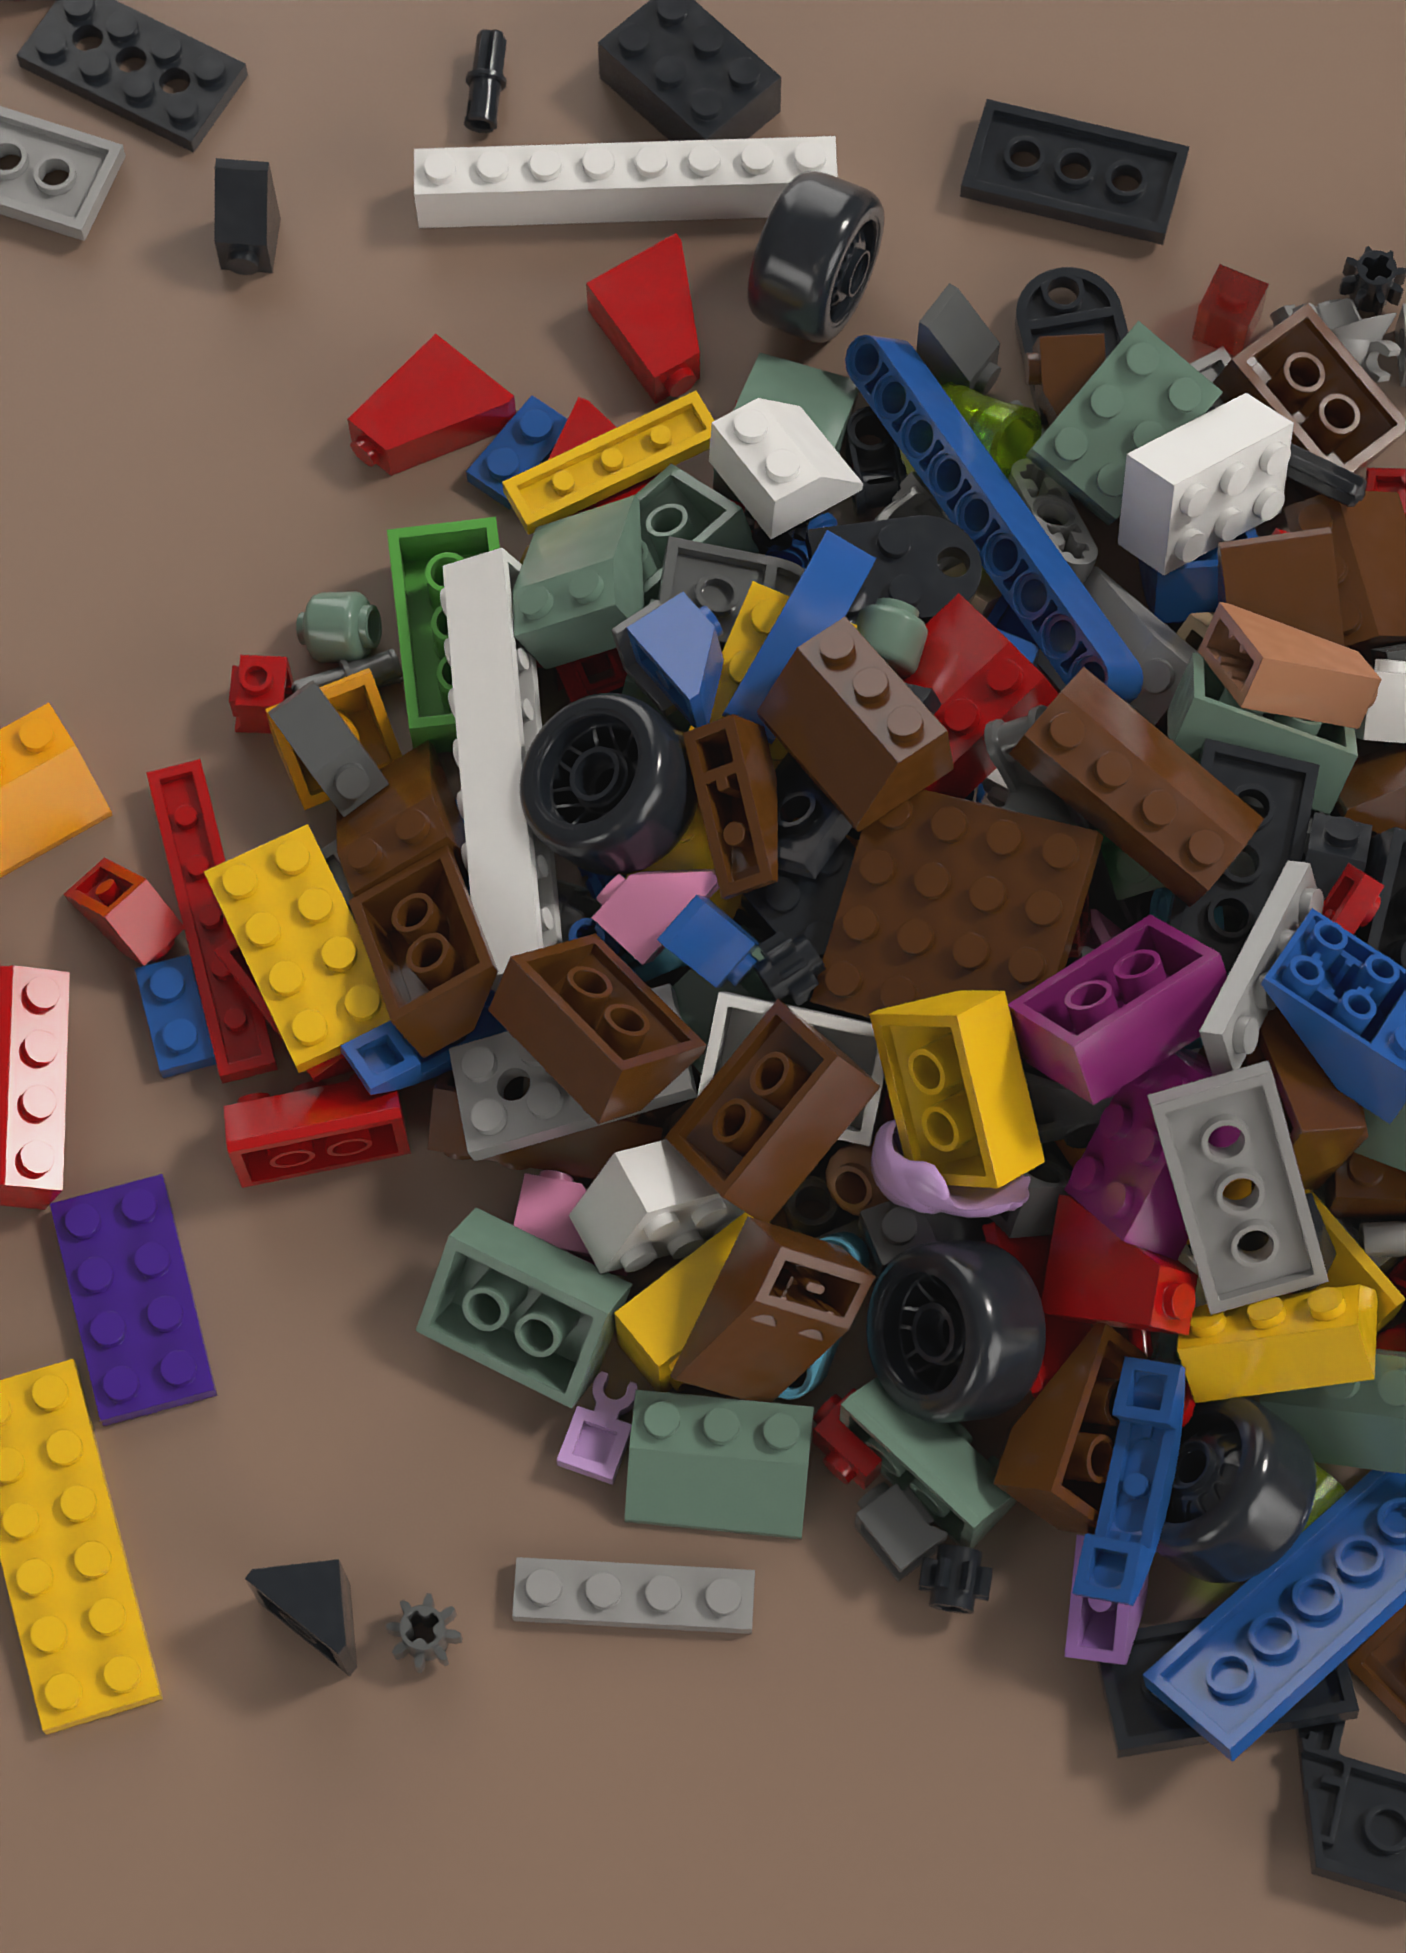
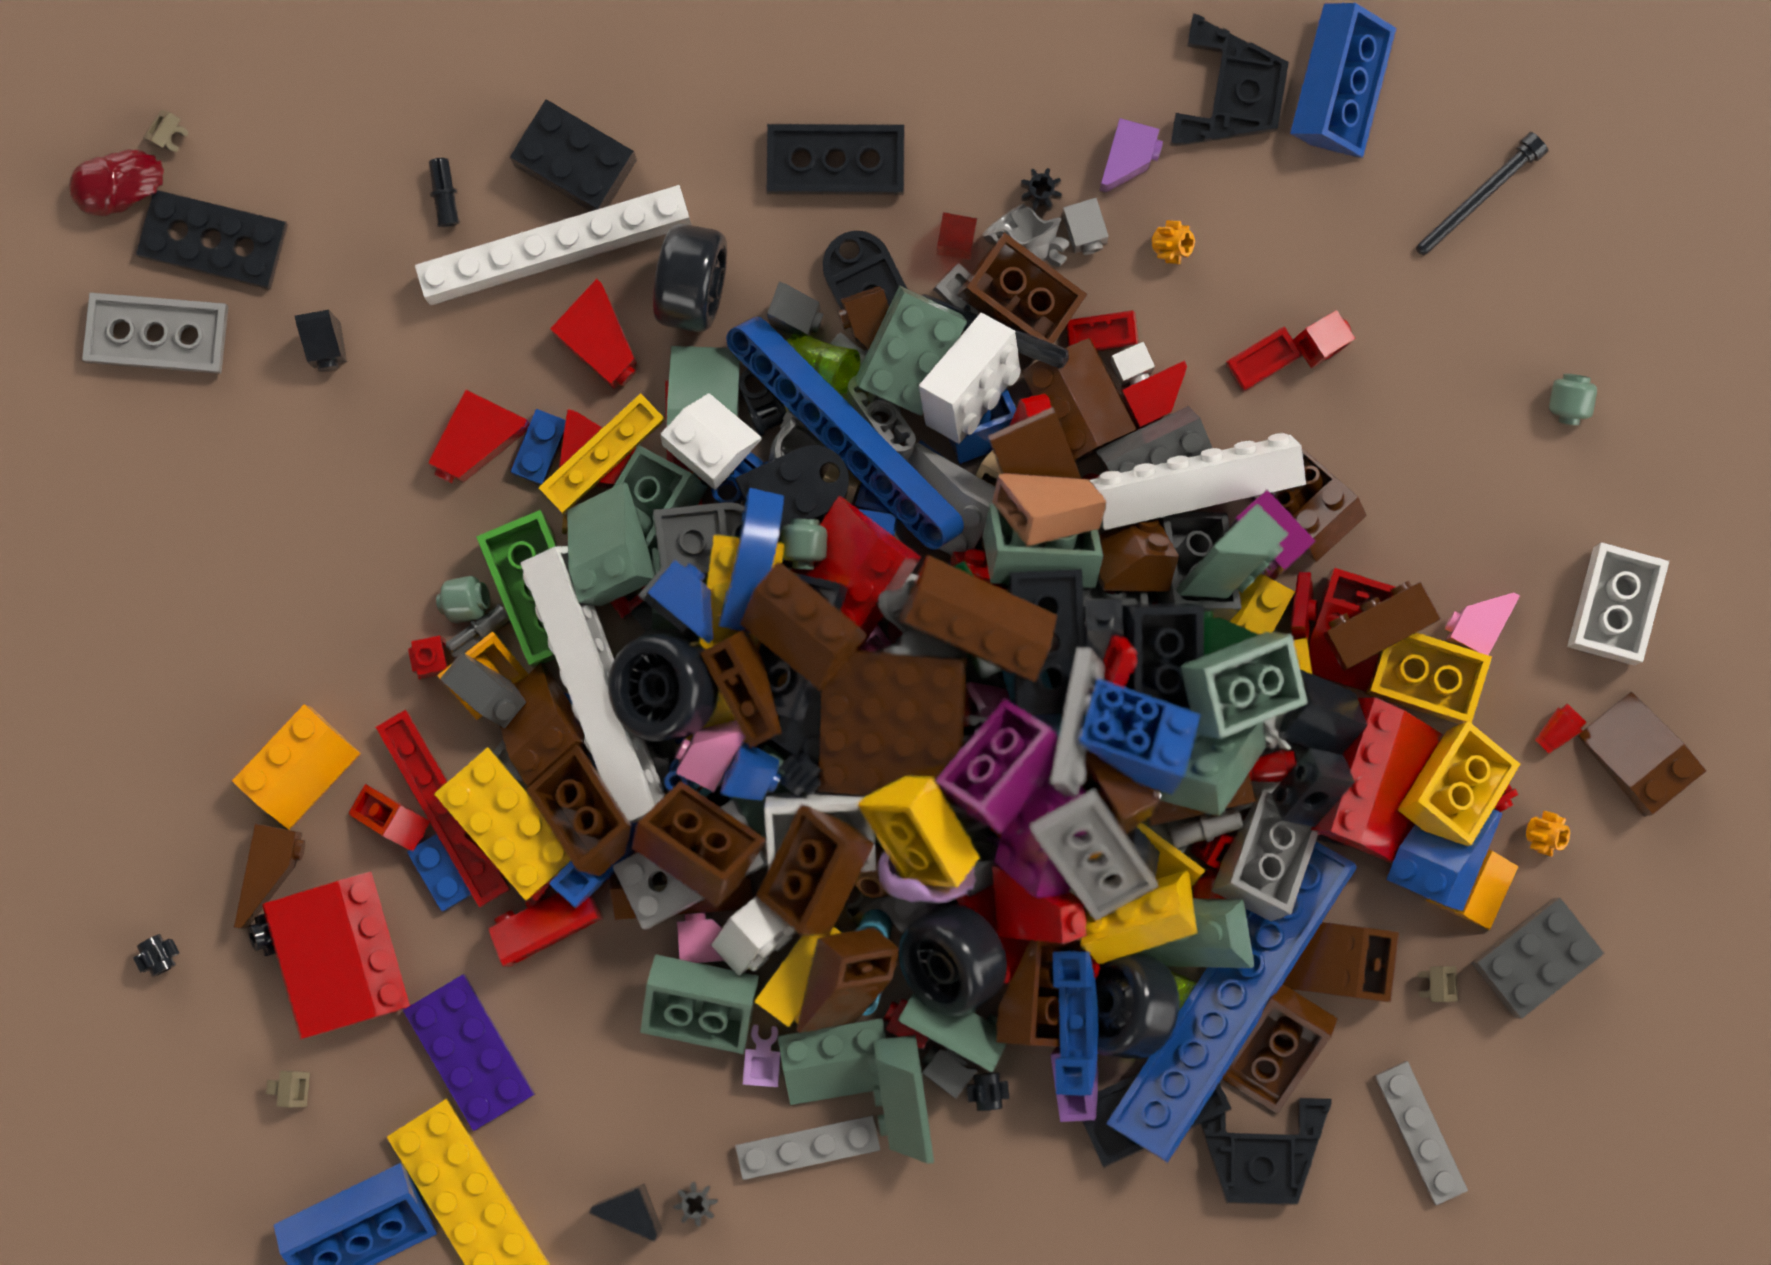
camera: 10 degrees left, 15 degrees up
(812, 1538) = (902, 1097): none -> sand green slope

